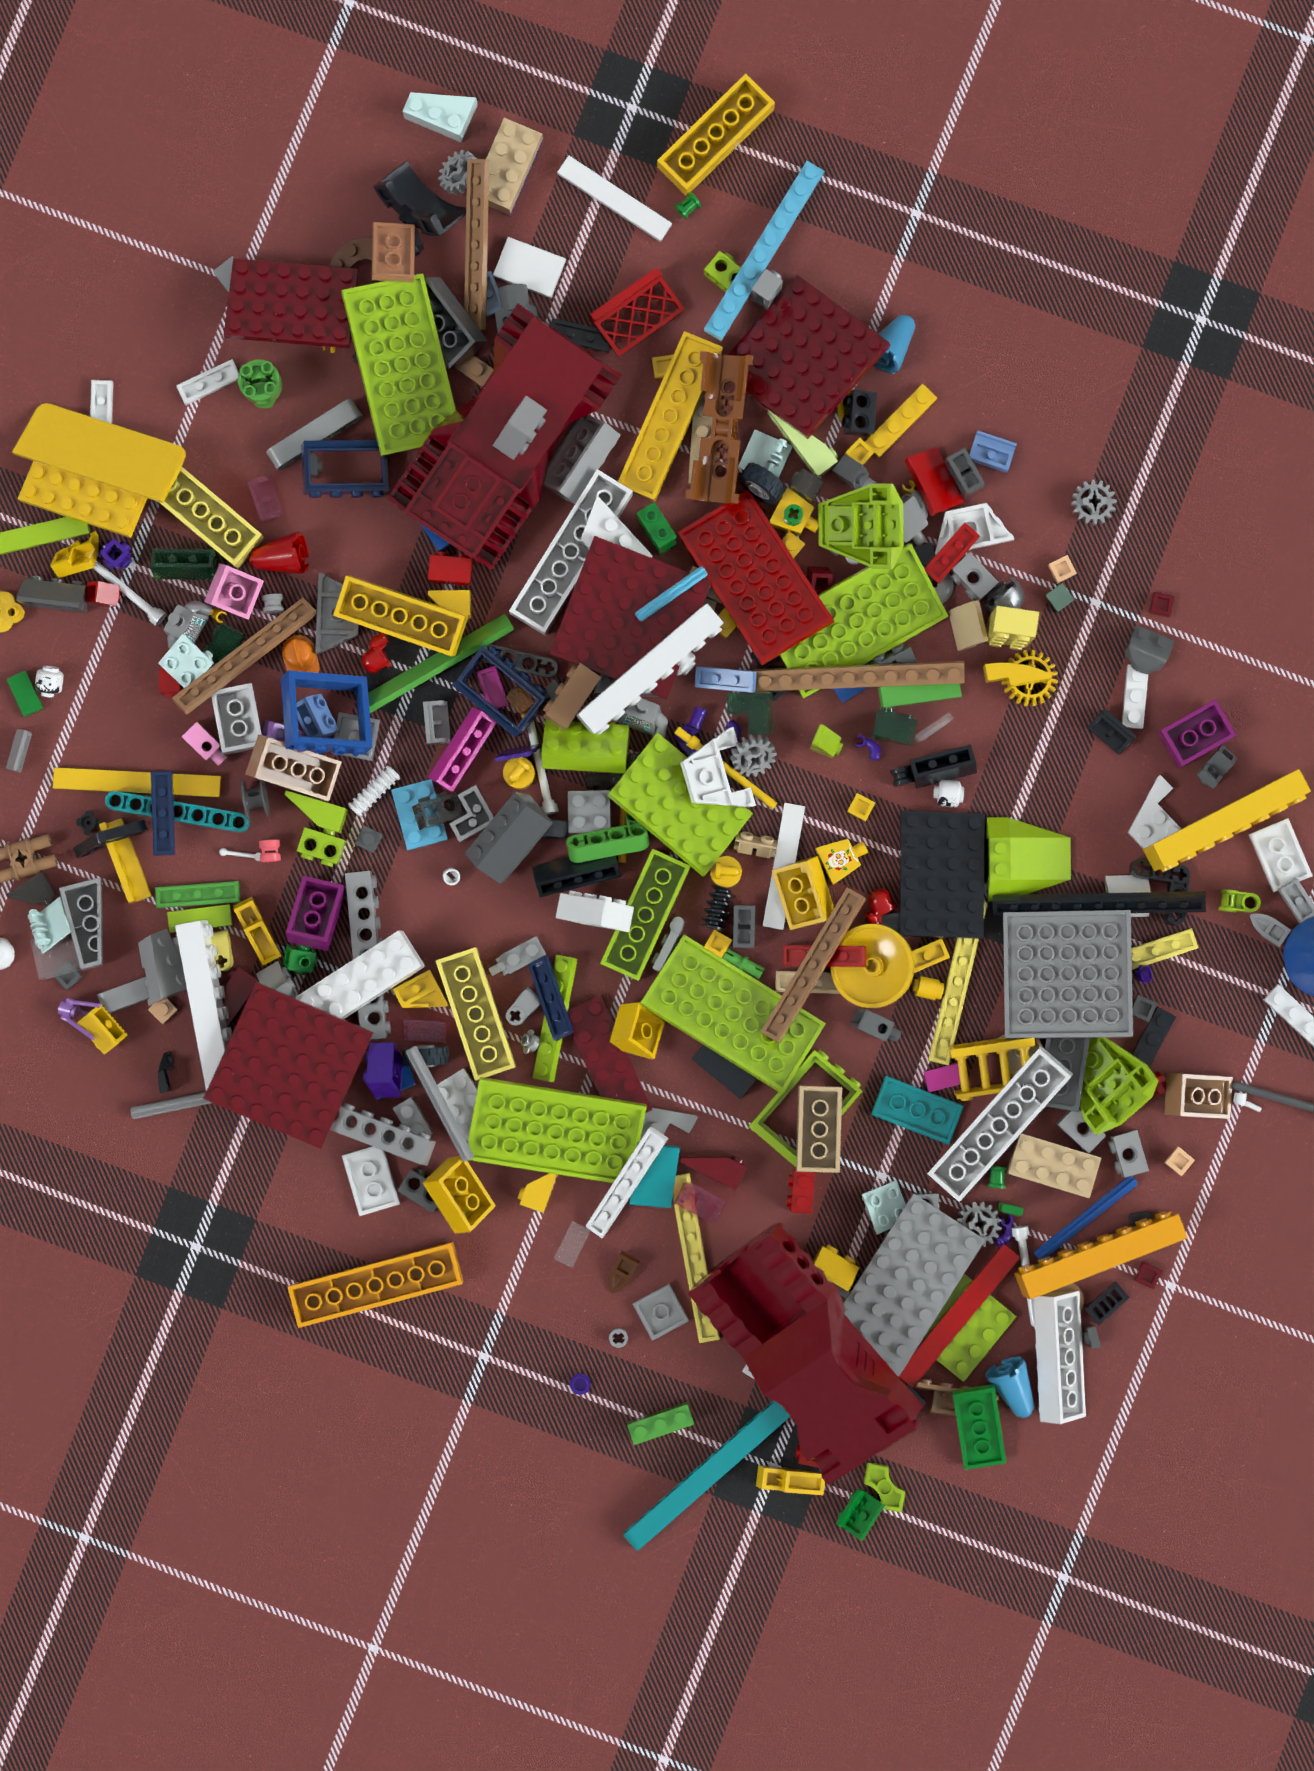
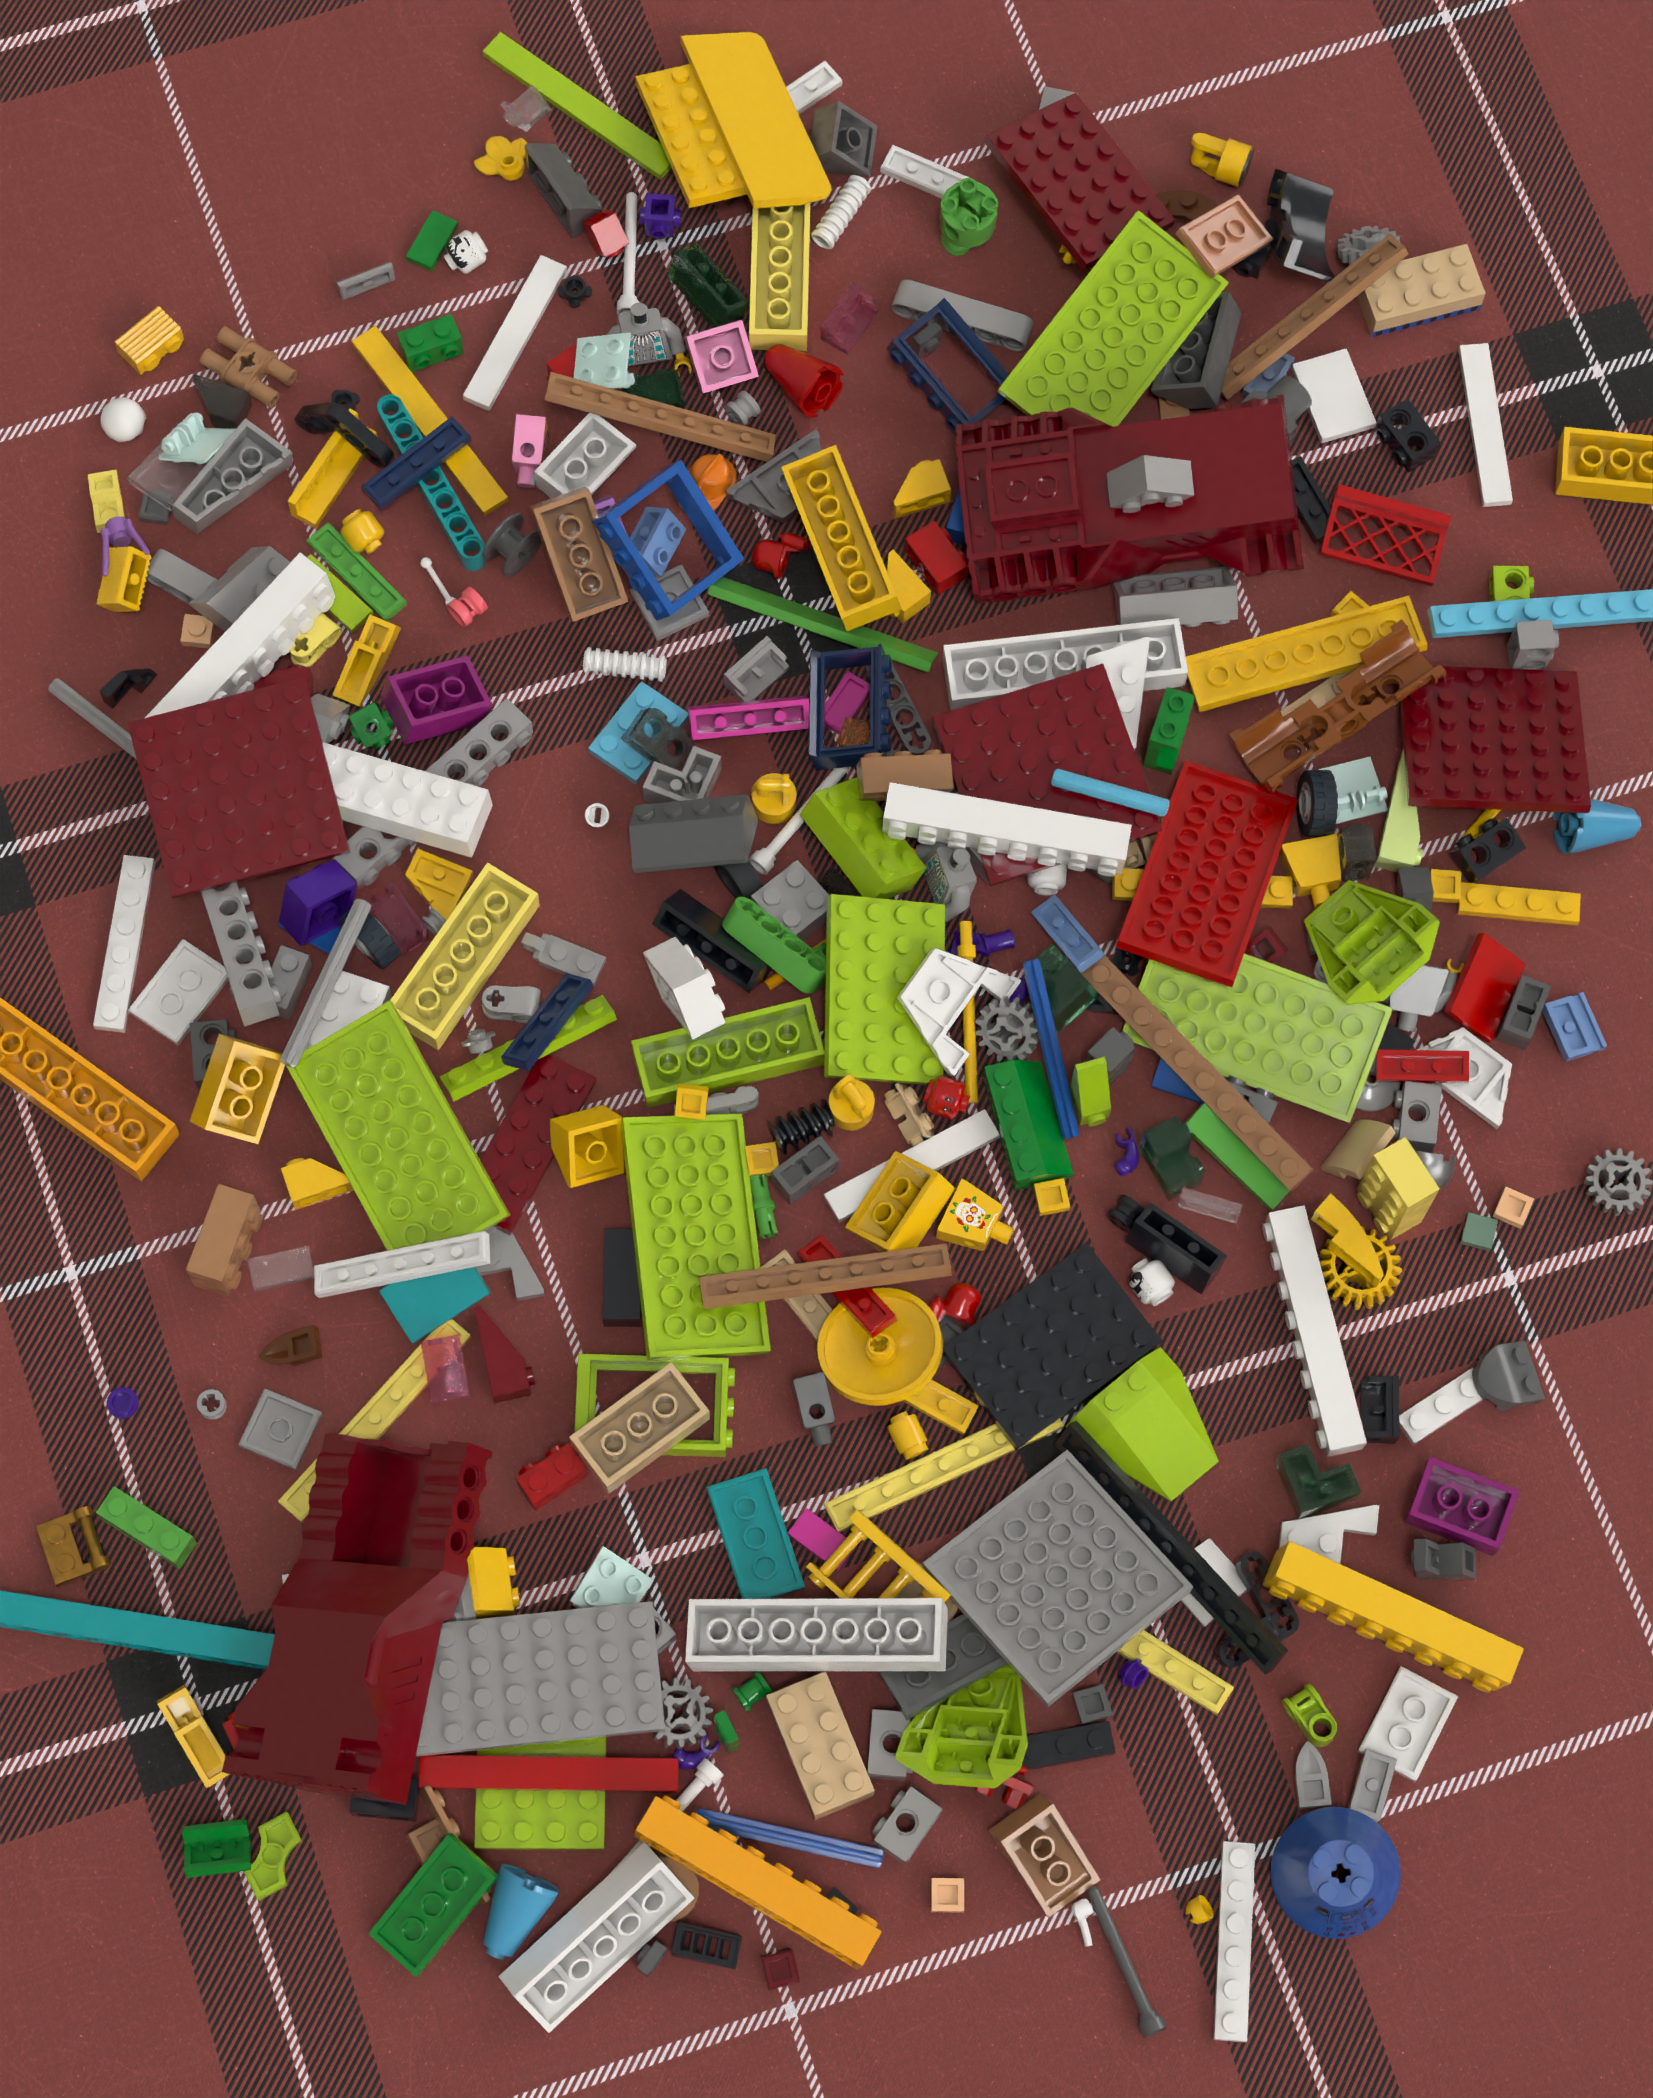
camera: 45 degrees right, 15 degrees down
(40, 999) = (105, 497): none -> light yellow slope
(76, 557) = (623, 181): yellow slope -> none
(91, 746) = (430, 343): none -> green brick
(117, 634) = (574, 283): none -> black plate
(121, 692) = (514, 333): none -> white tile
(151, 412) = (843, 140): none -> flat silver slope
(177, 873) = (362, 531): none -> yellow head
(195, 449) = (841, 212): none -> white piece
(318, 1188) = (124, 944): none -> white plate
(322, 842) = (519, 655): lime brick -> none
(323, 814) = (554, 631): lime slope -> none
(338, 207) = (1234, 158): none -> yellow piece
(369, 839) = (566, 701): dark grey plate -> none
(402, 542) = (922, 489): none -> yellow slope
(441, 113) = (1415, 185): light aqua wedge -> none
(442, 1013) = (433, 921): none -> light grey bush
(517, 752) = (792, 773): dark purple piece -> none
(537, 1265) = (224, 1240): none -> medium nougat brick
(588, 242) = (1414, 432): none -> black brick
(635, 1474) = (63, 1550): none -> pearl gold plate
(660, 958) = (691, 1101): none -> yellow plate
(688, 205) = (1546, 502): green bush -> none
(763, 818) = (946, 1097): none -> red head
(784, 743) = (1050, 1048): none -> blue axle
(791, 521) = (1303, 860): green bush -> none
(811, 786) = (1026, 1122): none -> green slope
(813, 714) = (1118, 1052): none -> dark grey brick
(1044, 730) = (1315, 1331): none -> white brick
(1124, 804) = (1311, 1490): none -> clear green brick
(1161, 604) = (1572, 1352): dark red tile -> none
(1288, 1040) = (1200, 1910): none -> yellow hinge

